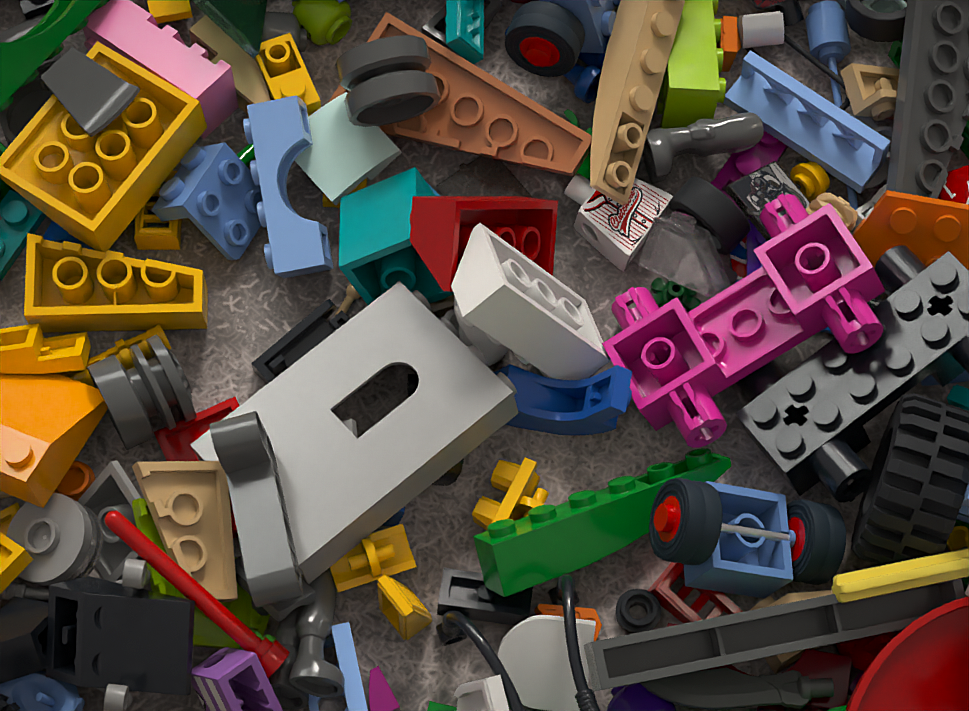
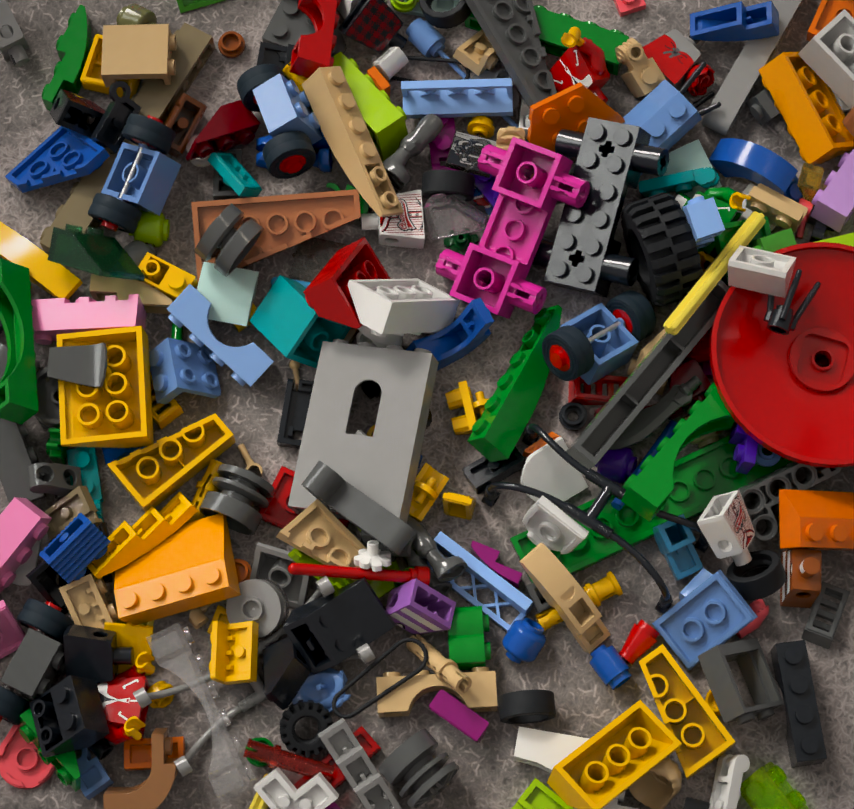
camera: 30 degrees left, 5 degrees up
(202, 363) = (248, 461): none -> tan hand
(227, 585) = (372, 557): none -> white plant

